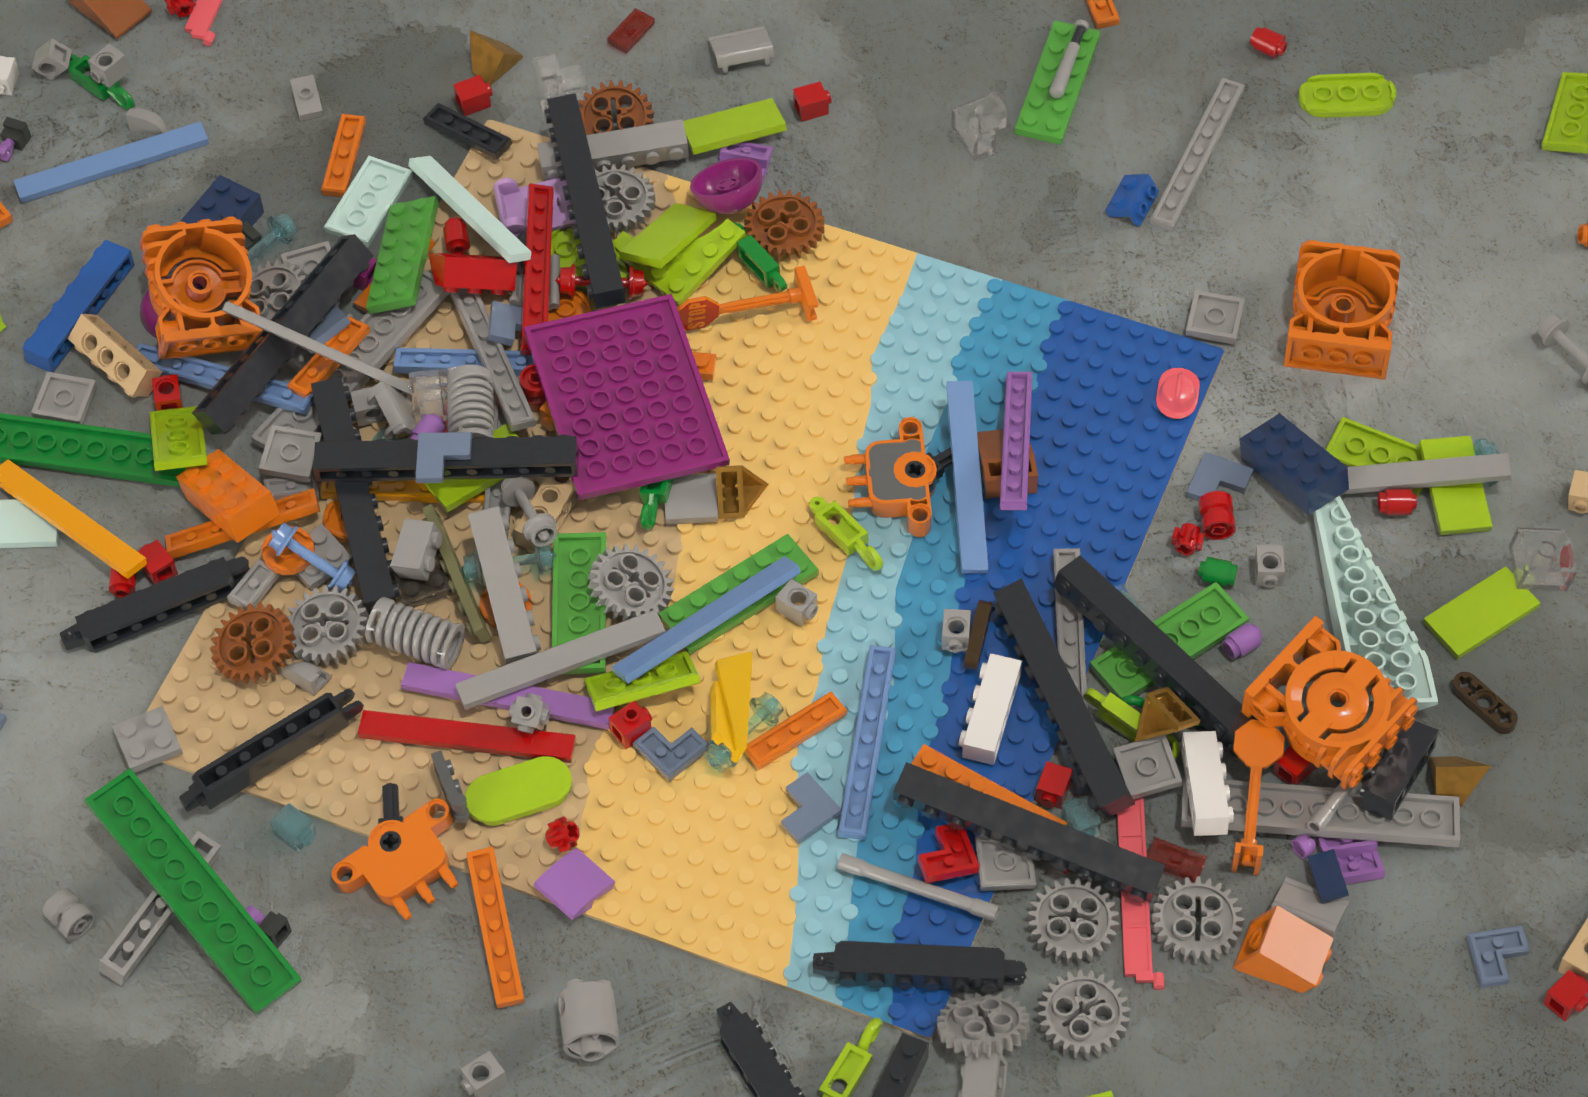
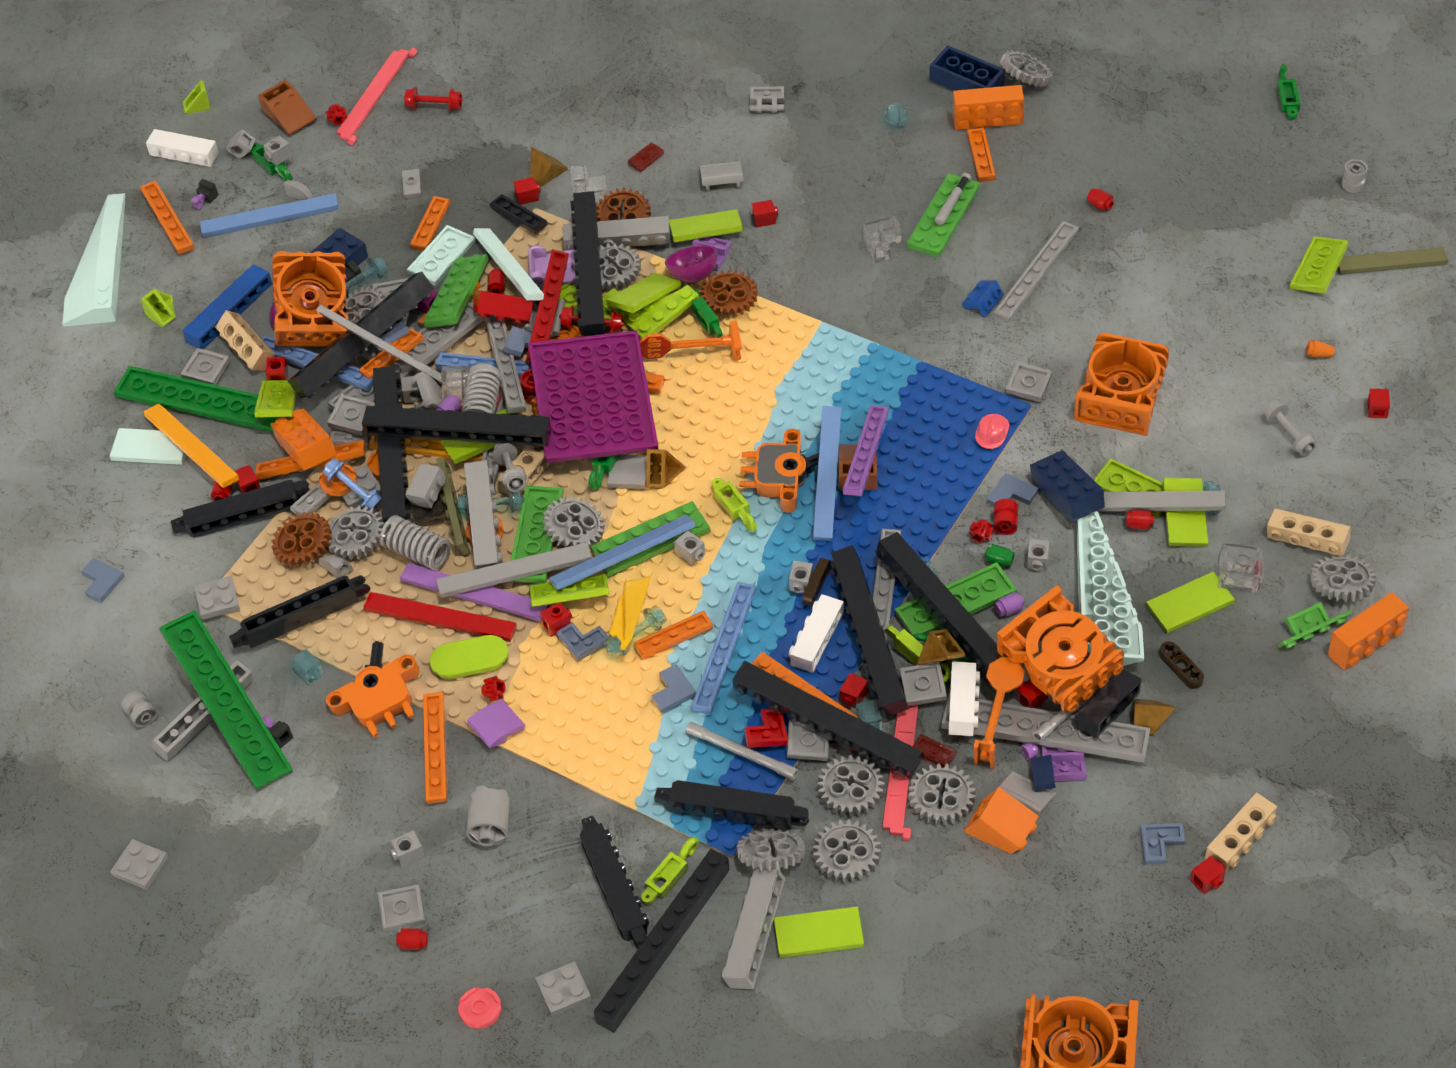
camera: 10 degrees right, 5 degrees down
(435, 449) = (449, 416): sand blue tile -> none
(451, 788) = (420, 649): dark grey plate -> none
(538, 717) = (485, 603): light grey brick -> none
(1347, 95) = (1152, 240): lime tile -> none

